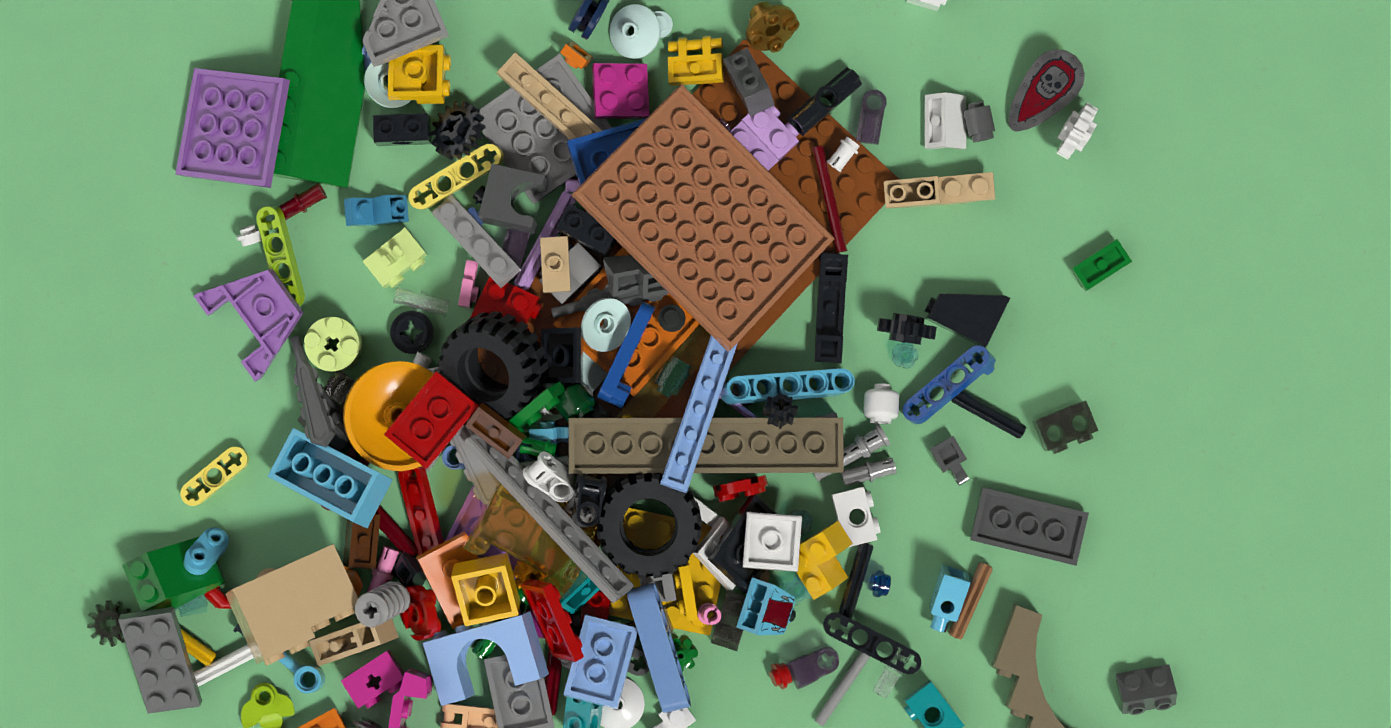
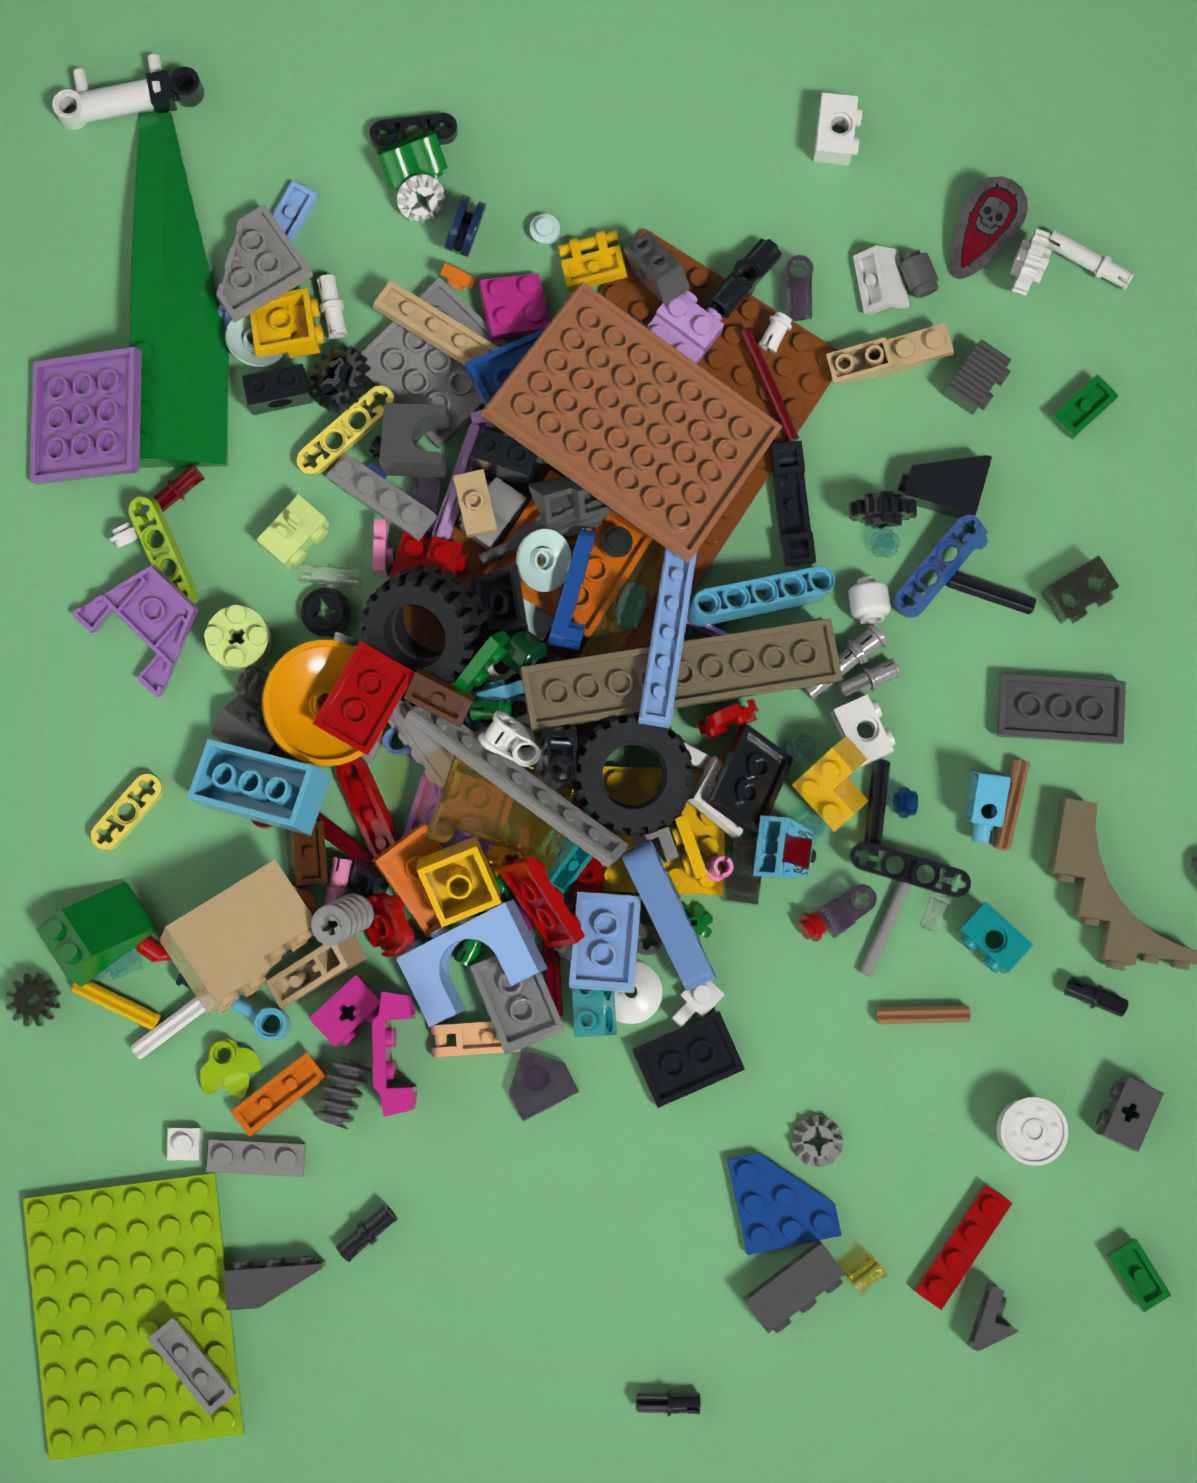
camera: 10 degrees left, 5 degrees down
(160, 660) = (96, 1030): dark grey plate -> none
(207, 549) = (132, 895): medium azure plate -> none
(315, 409) = (229, 713): dark grey sword -> none
(376, 210) = (263, 485): dark azure slope -> none
(461, 63) = (331, 306): none -> white pin
(645, 34) = (530, 245): light aqua dish -> none
(770, 26) = (670, 207): pearl gold plate -> none
(772, 541) = (776, 771): white plate -> none
(780, 410) = (759, 619): black gear -> none
(949, 456) = (956, 647): dark grey plate -> none
(1013, 223) = (977, 377): none -> dark grey brick
(1131, 134) = (1090, 260): none -> white pin

